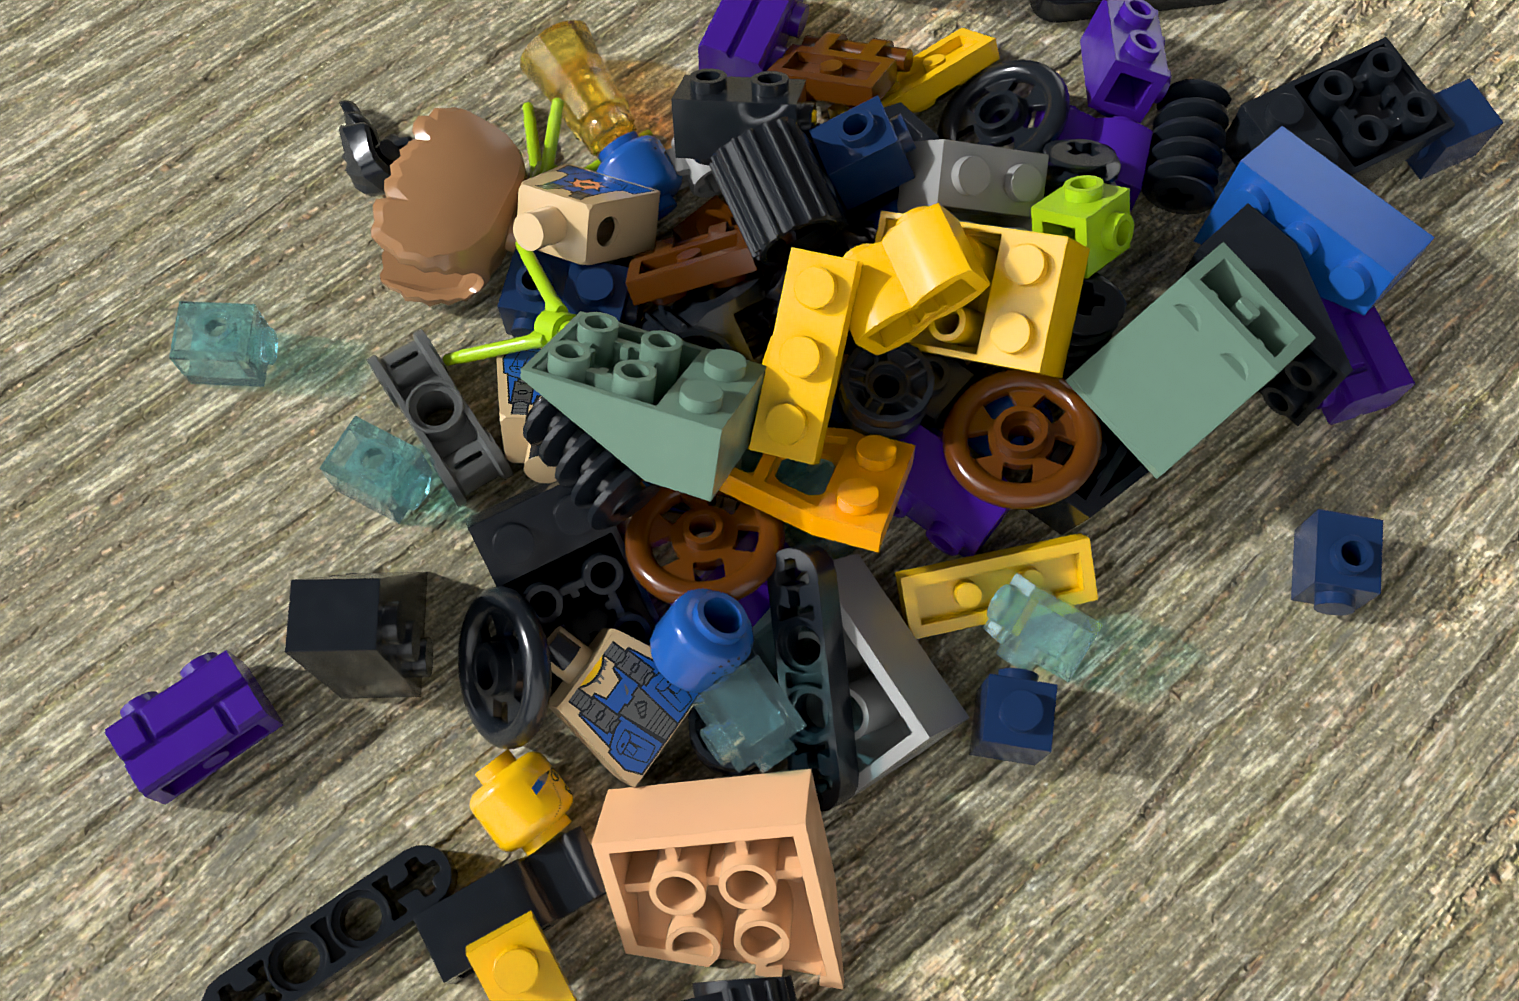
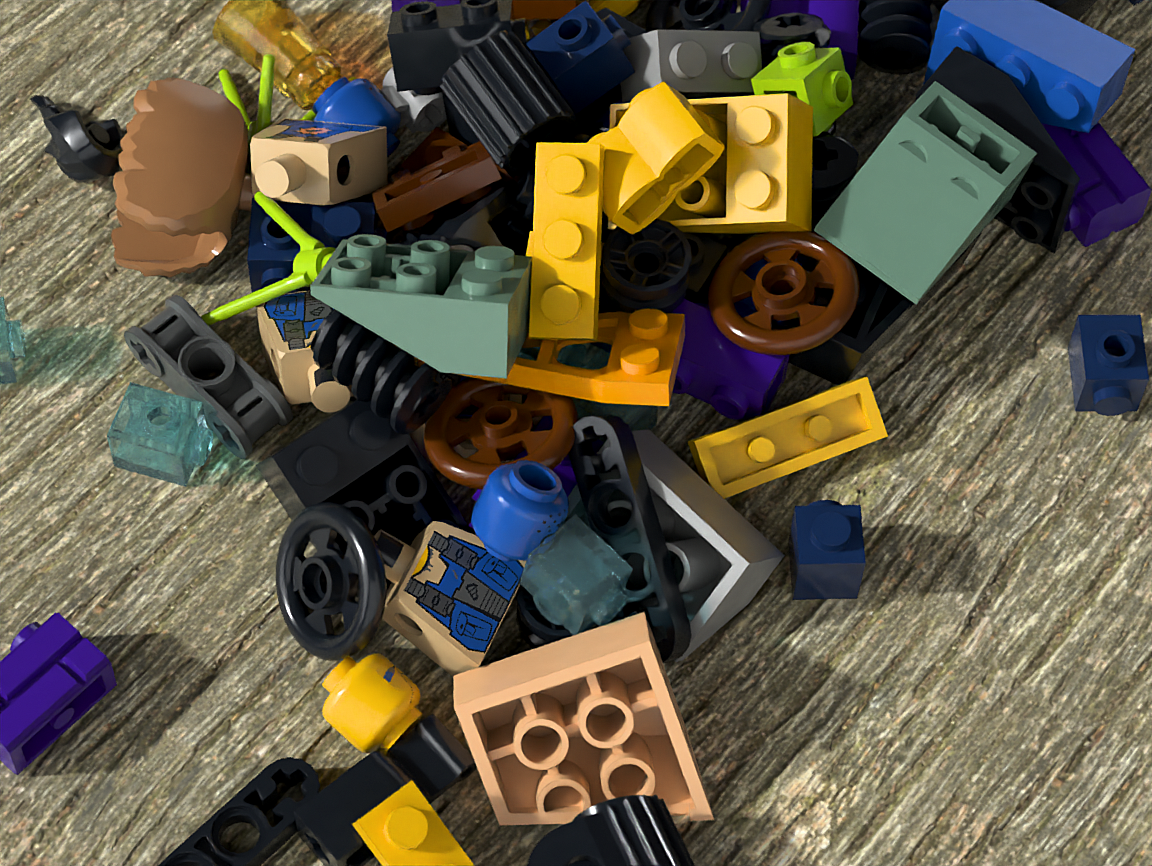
camera: 10 degrees left, 10 degrees down
(362, 632) = (196, 569): black wedge -> none
(1039, 628) = (835, 463): clear light blue brick -> none

